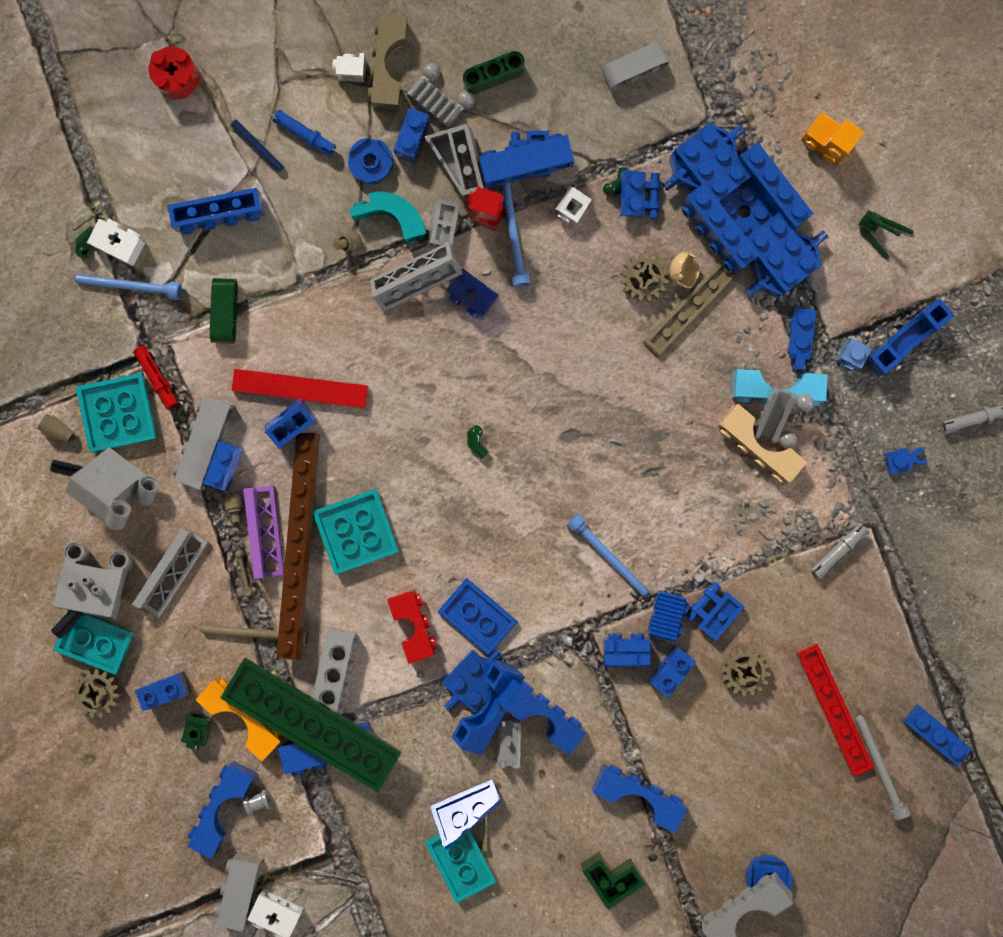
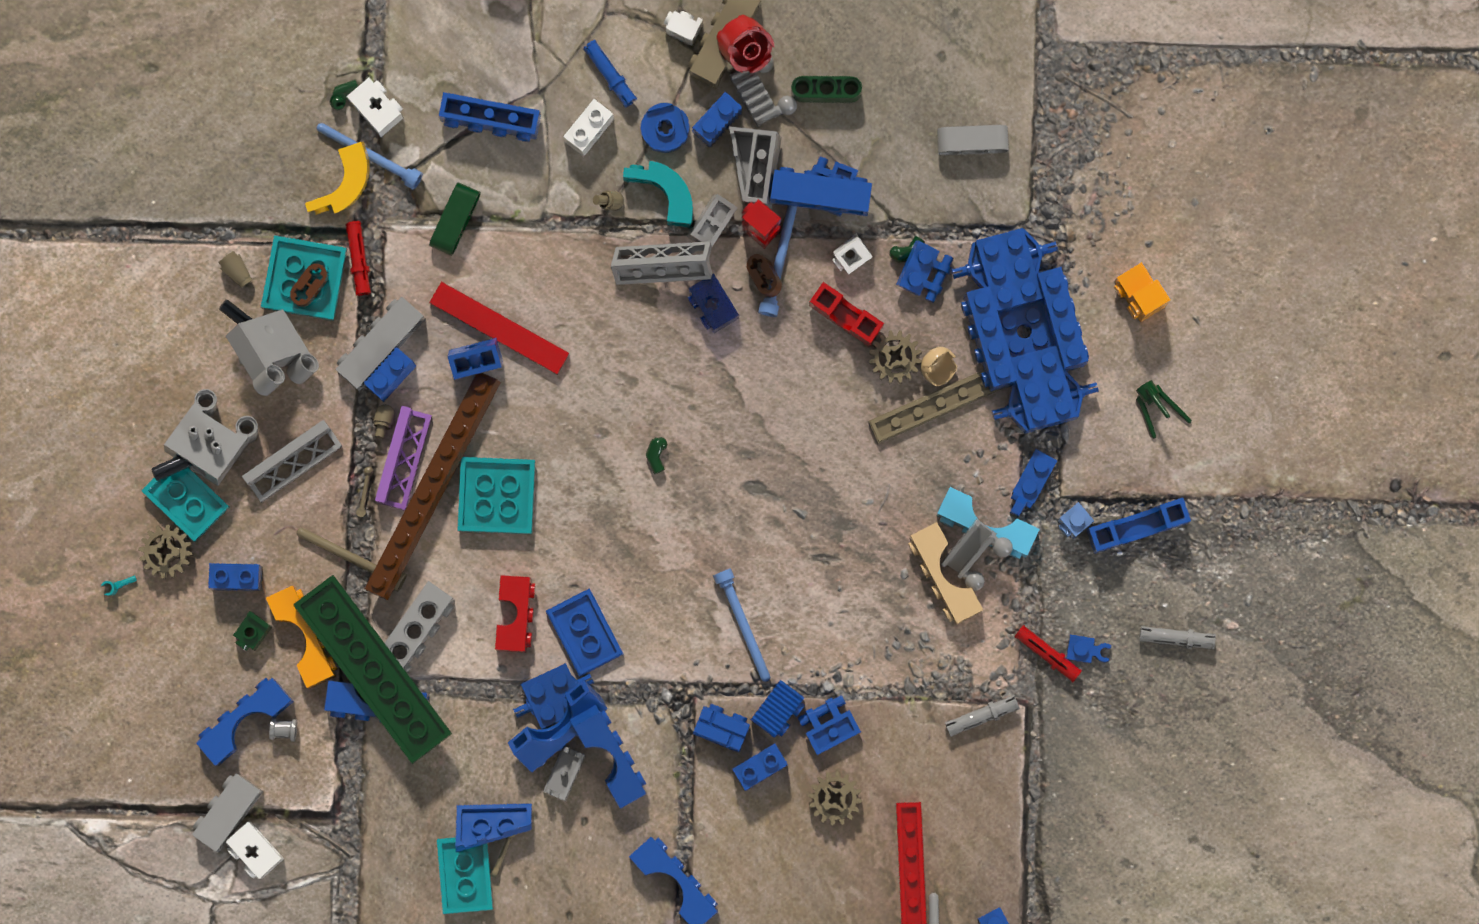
camera: 20 degrees right, 5 degrees down
(65, 738) = (119, 584): none -> teal hand
(124, 315) = (356, 175): none -> yellow arch
(127, 419) = (304, 281): none -> reddish brown beam
(246, 135) = (557, 67): dark blue bar -> none
(305, 186) = (588, 127): none -> white brick
(409, 59) = (745, 44): none -> red brick
(508, 248) = (768, 273): none -> reddish brown beam
(580, 257) = (845, 315): none -> red arch
(899, 483) = (1071, 672): none -> red pin

